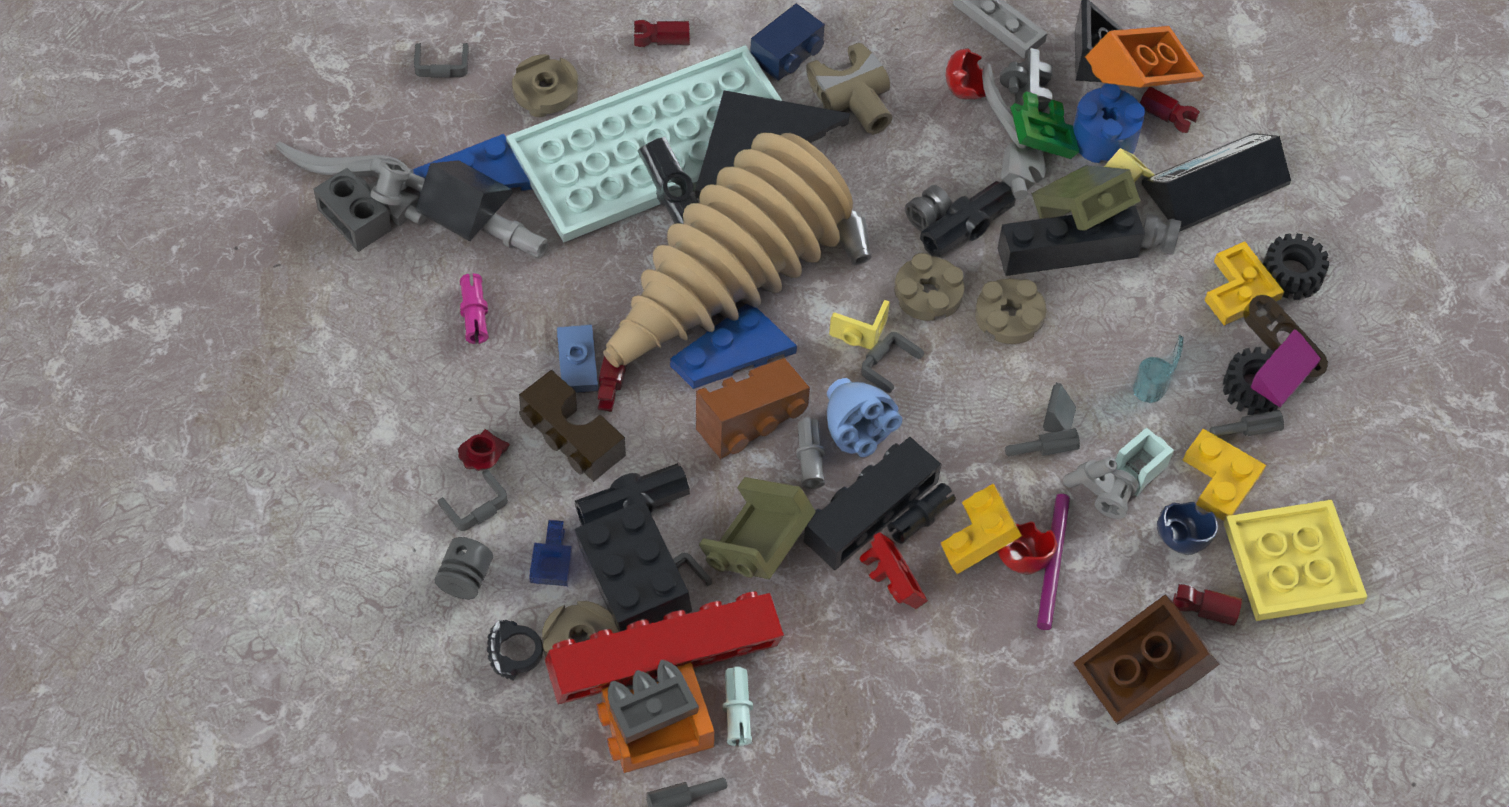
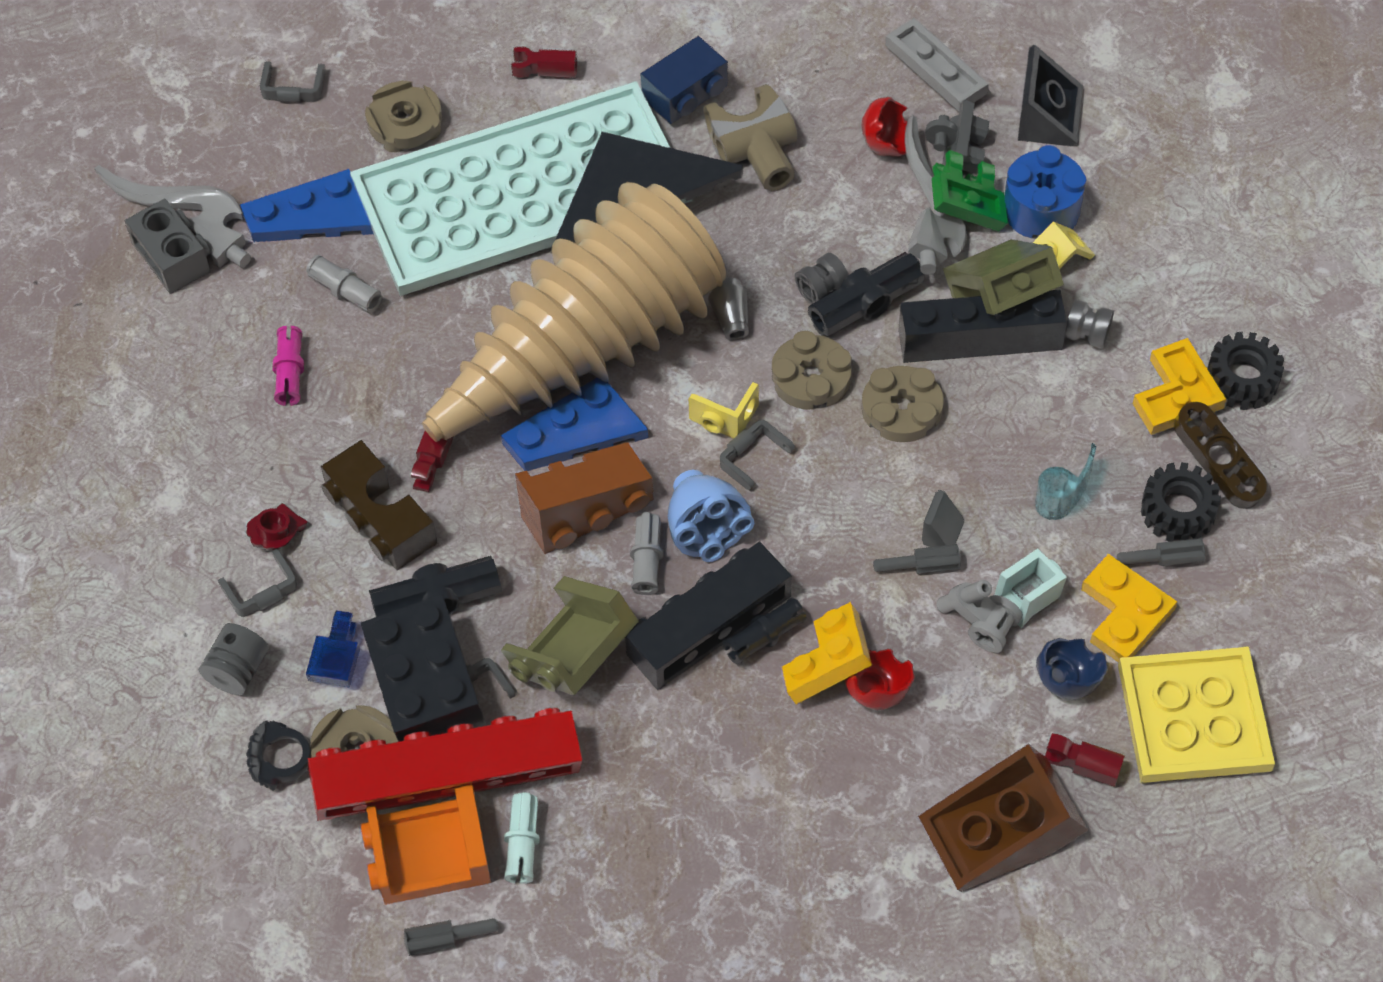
camera: 10 degrees right, 0 degrees up
(392, 180) = (216, 213): light grey piece -> none
(460, 197) = (287, 238): black slope -> none
(577, 357) = (397, 428): medium blue plate -> none
(652, 704) = (419, 828): dark grey plate -> none
(665, 169) = (519, 219): black piece -> none
(892, 565) = (724, 692): red plate -> none
(1052, 570) = (911, 700): magenta bar -> none
(1142, 58) = (1092, 118): orange slope -> none
(1169, 109) = (1120, 179): dark red bar -> none
(1220, 179) = (1170, 265): black slope -> none
(1285, 369) = (1212, 490): magenta slope -> none

